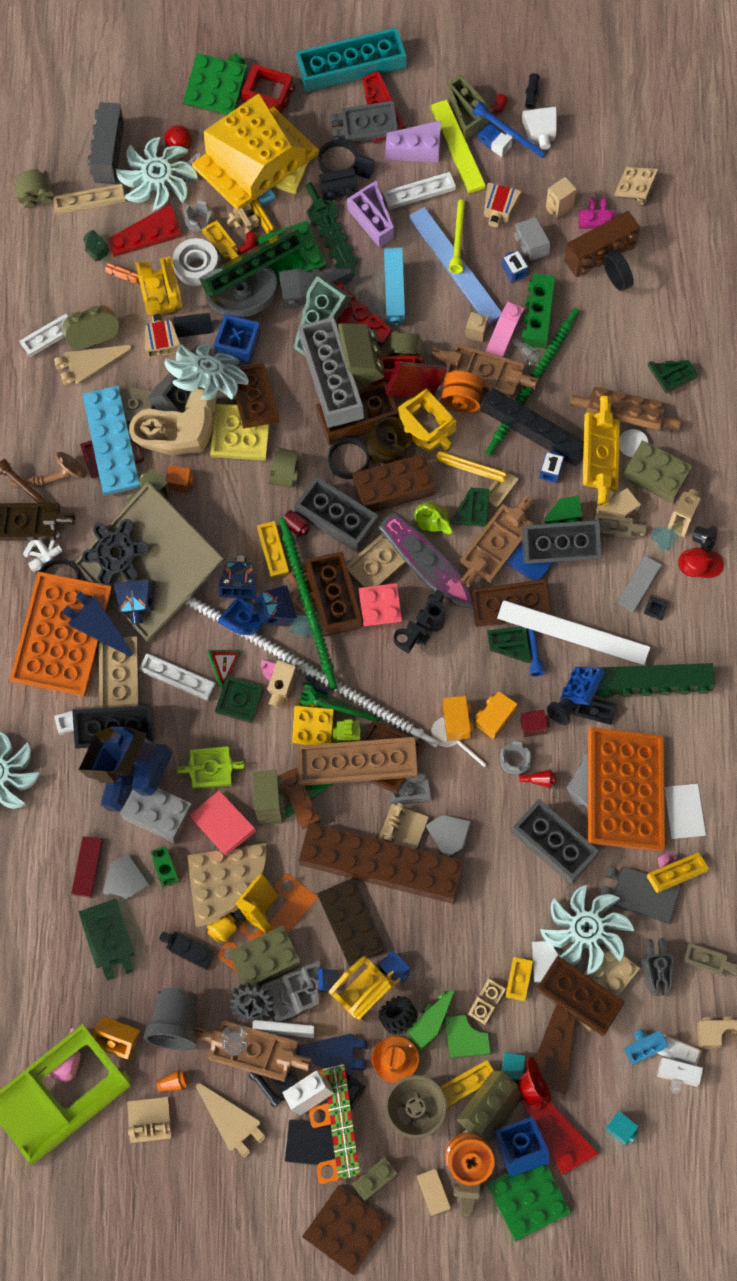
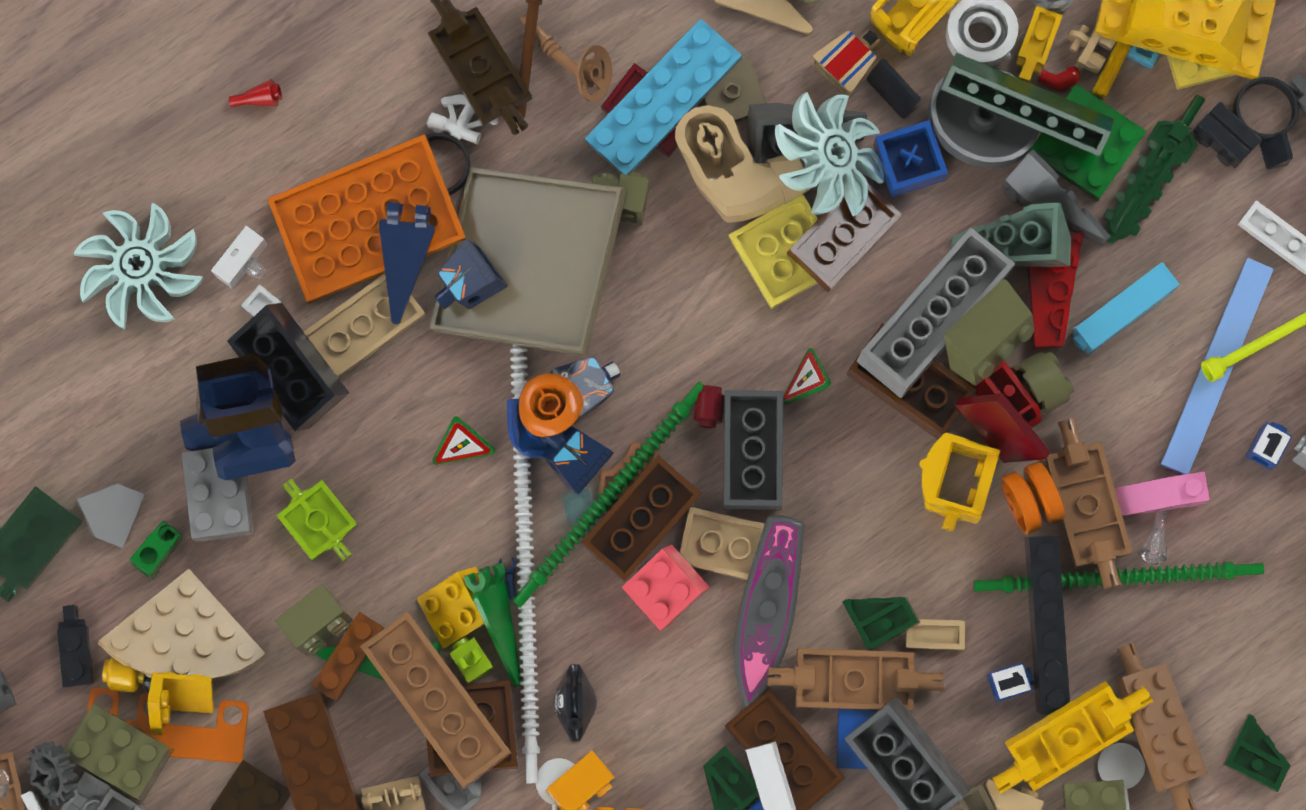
camera: 55 degrees right, 10 degrees up
(33, 715) = (241, 259): none -> white piece
(87, 867) = (97, 457): dark red tile -> none
(104, 552) = (497, 200): black plate -> none
(177, 677) = (408, 398): white tile -> none
(179, 478) = (669, 218): orange brick -> none
(222, 823) = (254, 584): coral tile -> none
(237, 599) = (549, 404): none -> orange hat
(239, 699) = (428, 495): dark green plate -> none
(267, 669) = (493, 506): bright pink tile -> none
(272, 549) = (654, 401): yellow plate -> none
(284, 467) = (771, 340): olive brick -> none
(285, 675) = (492, 533): tan torso -> none
(317, 462) = (808, 378): none -> piece
(348, 440) = (863, 388): black tyre -> none
(371, 214) = (1211, 208): lavender wedge -> none
(388, 440) = (883, 442): dark brown wheel -> none
(394, 483) = (845, 493): reddish brown brick -> none
(408, 695) = (575, 702): none -> black hat
(430, 619) = (680, 657): black plate -> none
(432, 517) = (833, 575): lime hair -> none
(471, 466) = (939, 577): yellow axle -> none
(476, 327) = (1143, 453): tan brick -> none
(544, 285) = (1268, 505): green brick -> none
(565, 510) = (957, 741): green slope -> none

